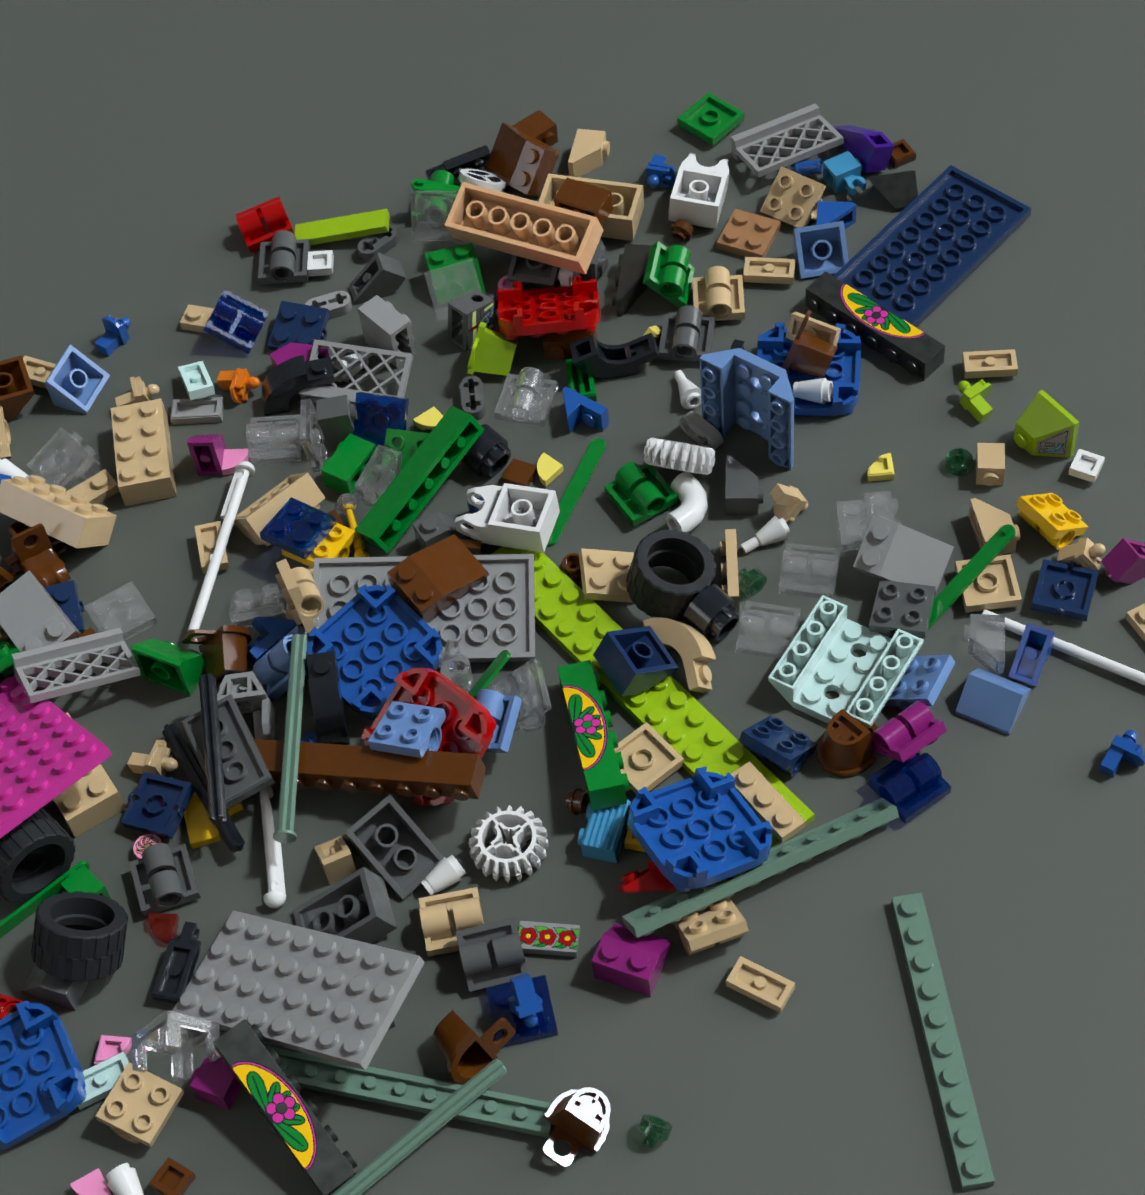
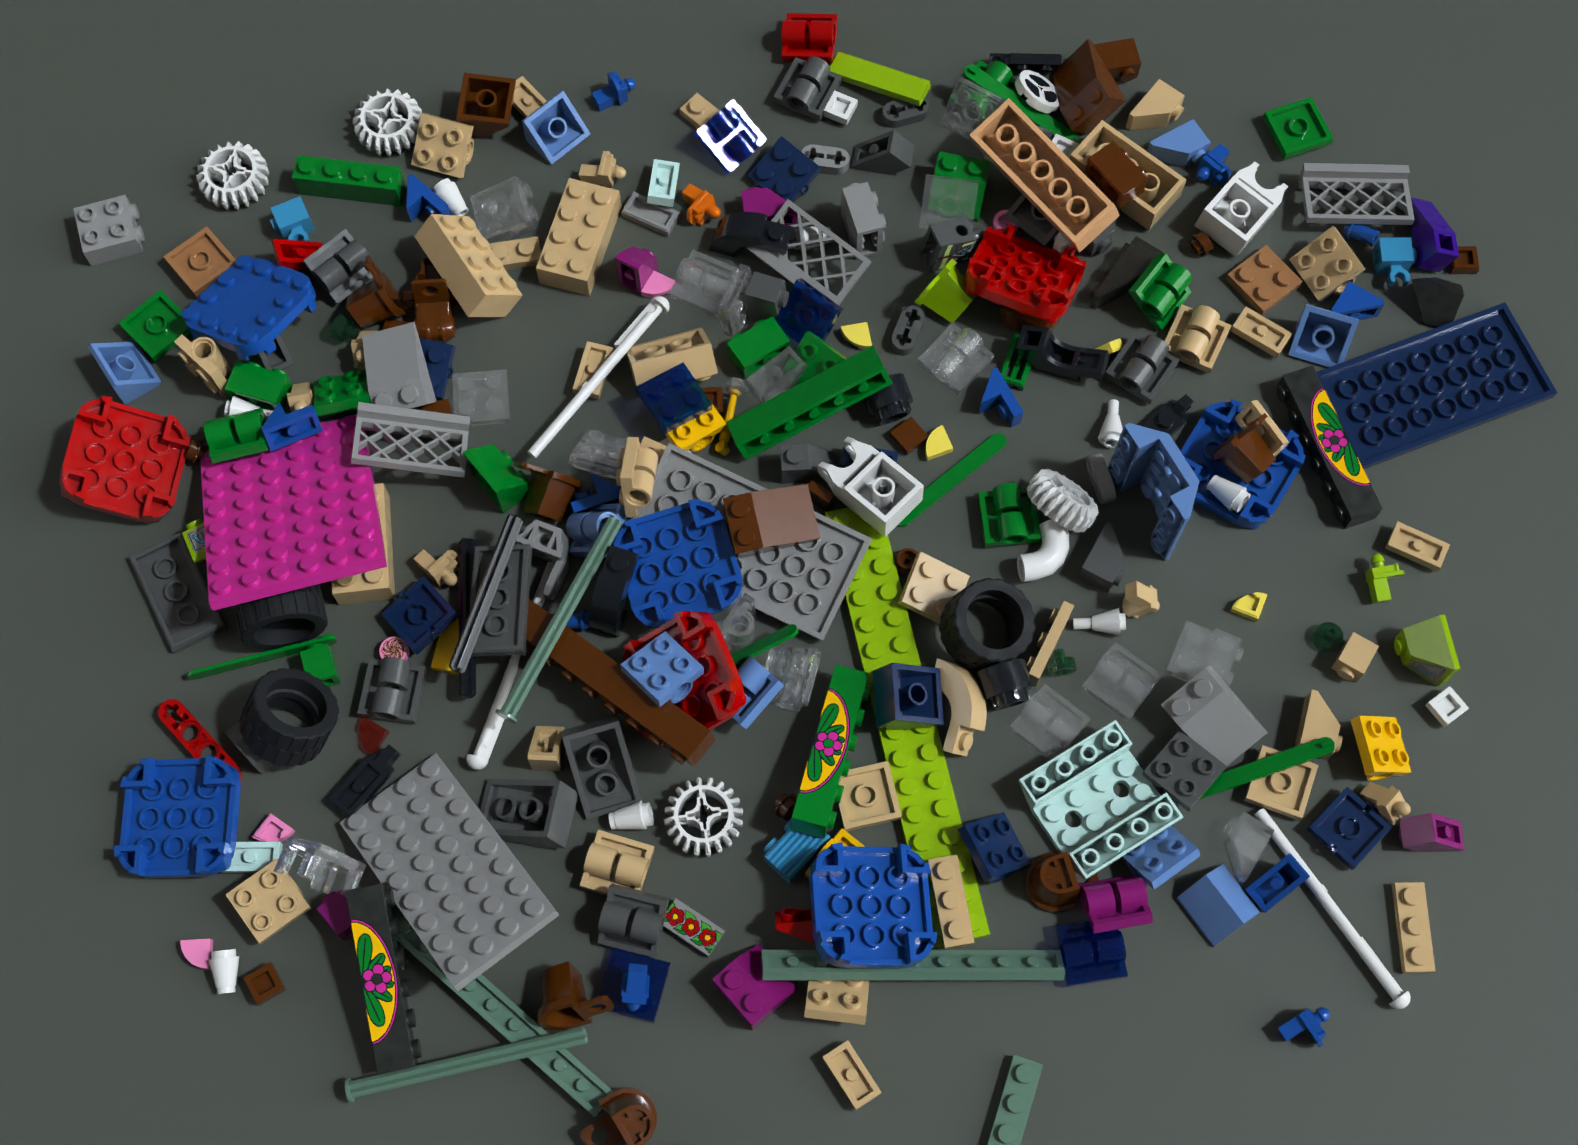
camera: 20 degrees right, 15 degrees up
(624, 166) = (1181, 145): none -> medium blue slope

